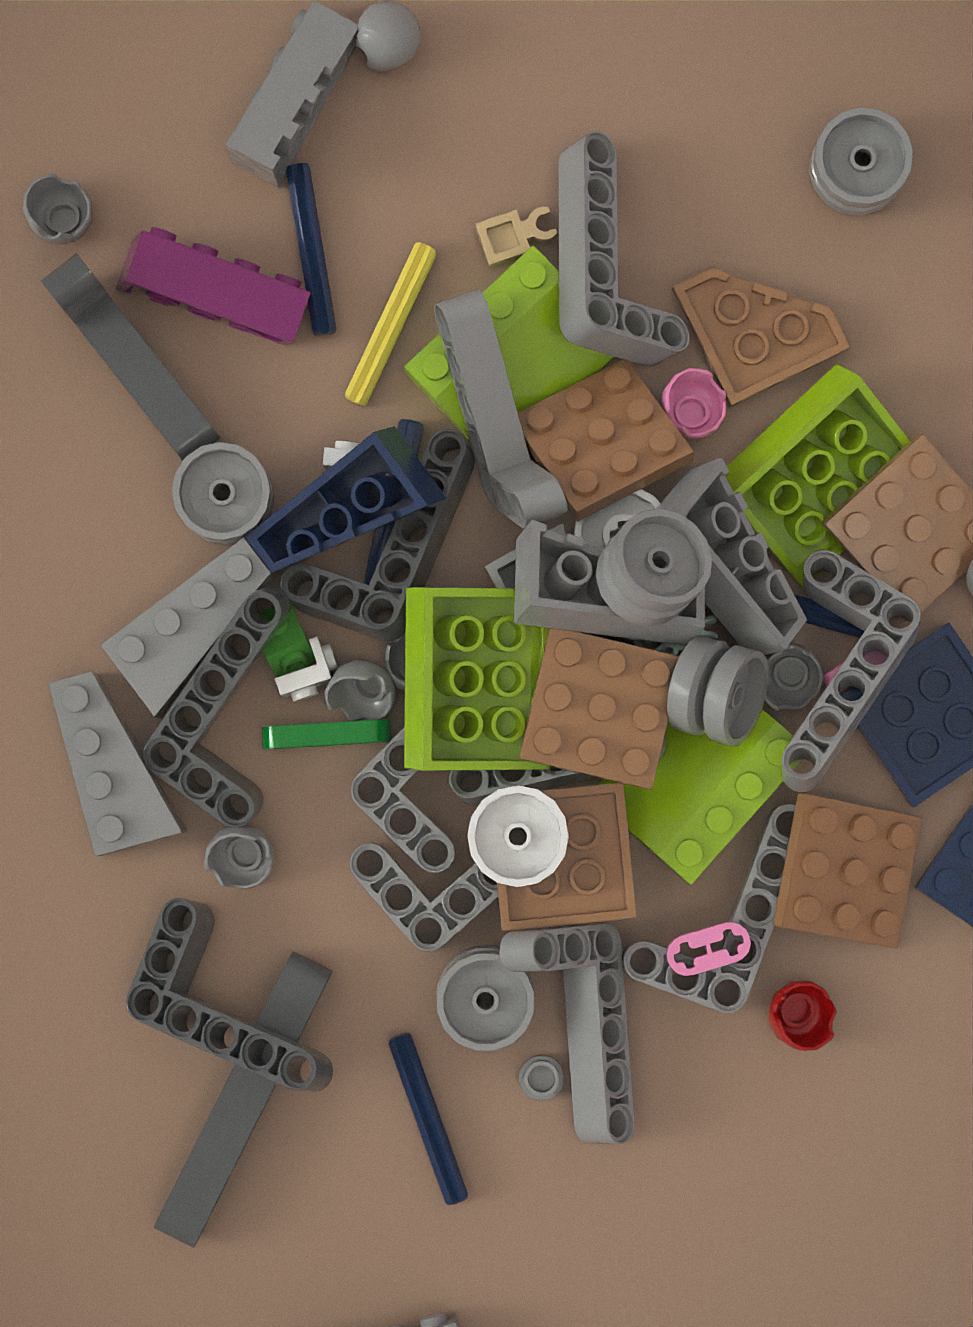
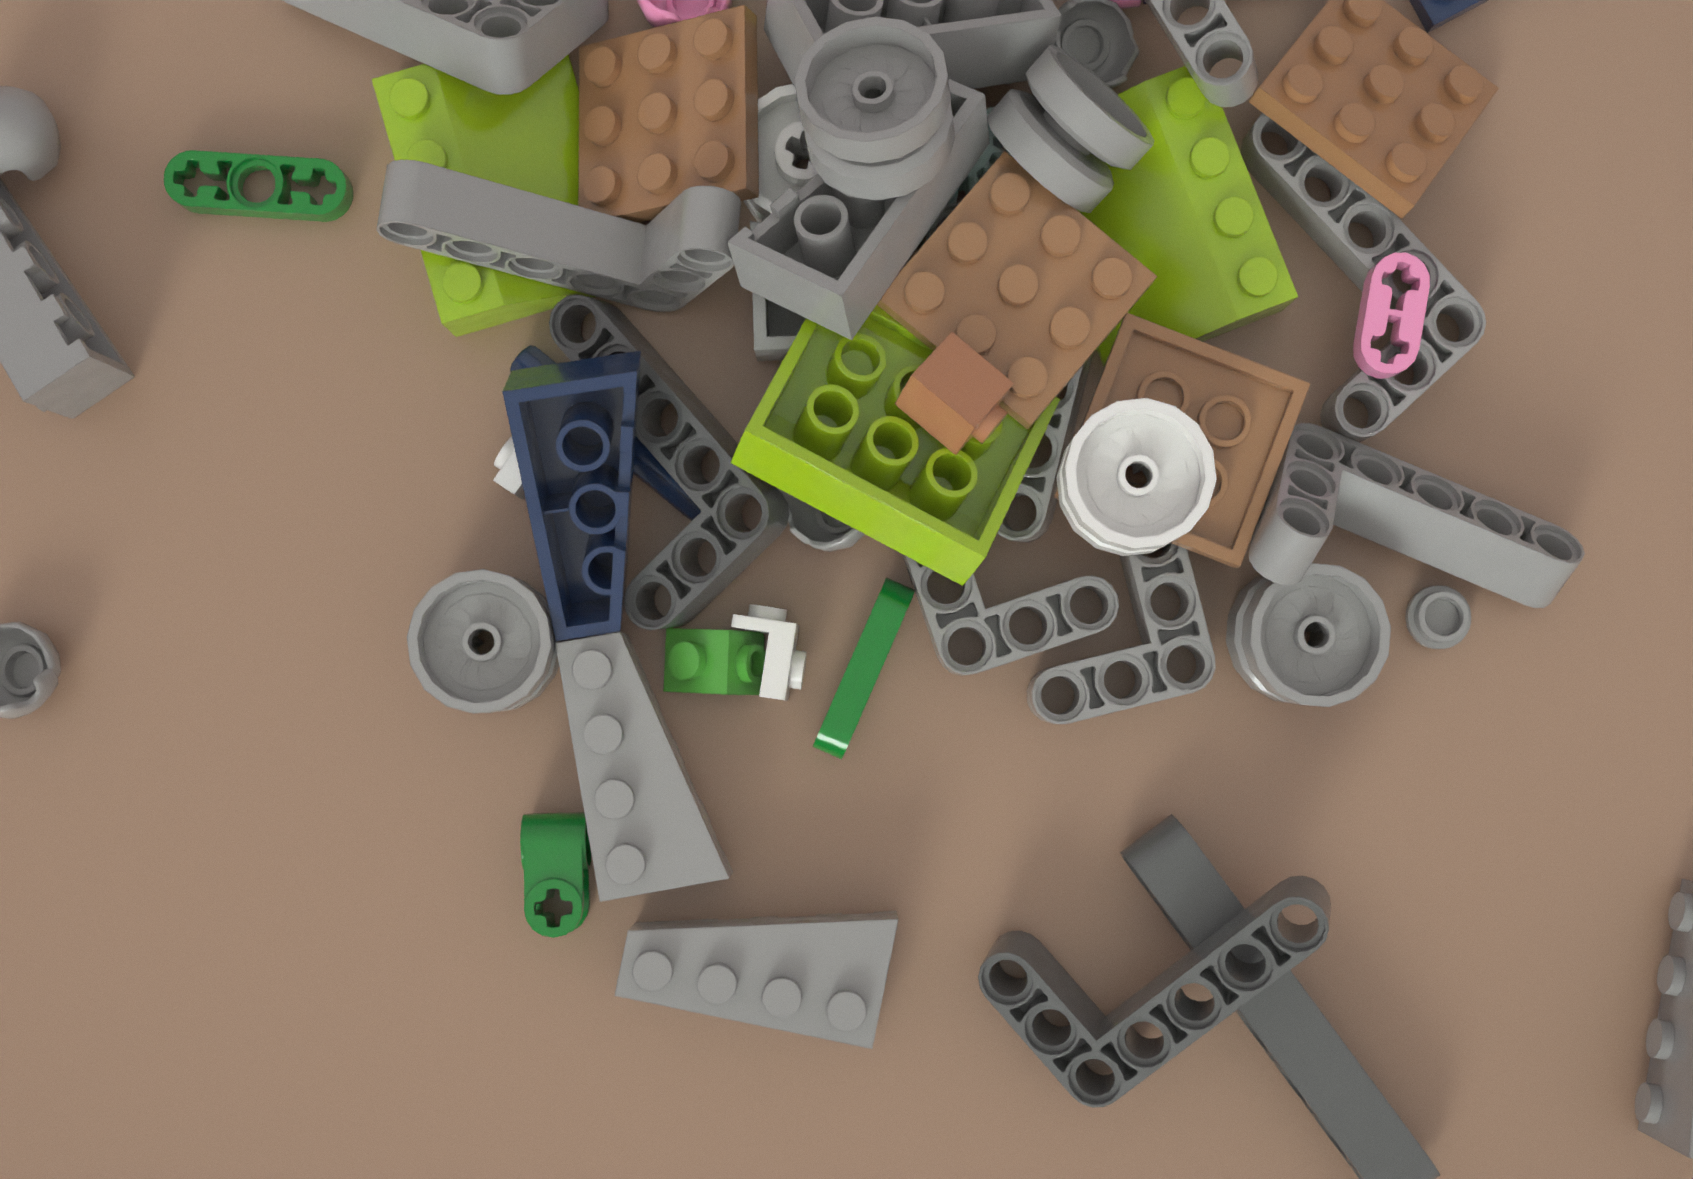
camera: 65 degrees left, 0 degrees up
(114, 606) = (555, 857): none -> green piece
(129, 357) = (151, 693): dark grey beam -> none
(210, 704) = (749, 798): dark grey beam -> none
(214, 286) = (210, 518): magenta wedge -> none
(240, 857) = (965, 858): light grey hair -> none
(311, 249) = (232, 373): dark blue axle -> none
(361, 690) = (832, 593): light grey hair -> none
(390, 324) = (381, 320): light yellow axle -> none
(428, 1119) = (1419, 788): dark blue axle -> none
(434, 169) = (213, 201): none -> green beam
(507, 236) = (348, 115): tan plate -> none
(512, 703) = (955, 395): none -> nougat brick
(802, 1015) = (1528, 246): red hair -> none

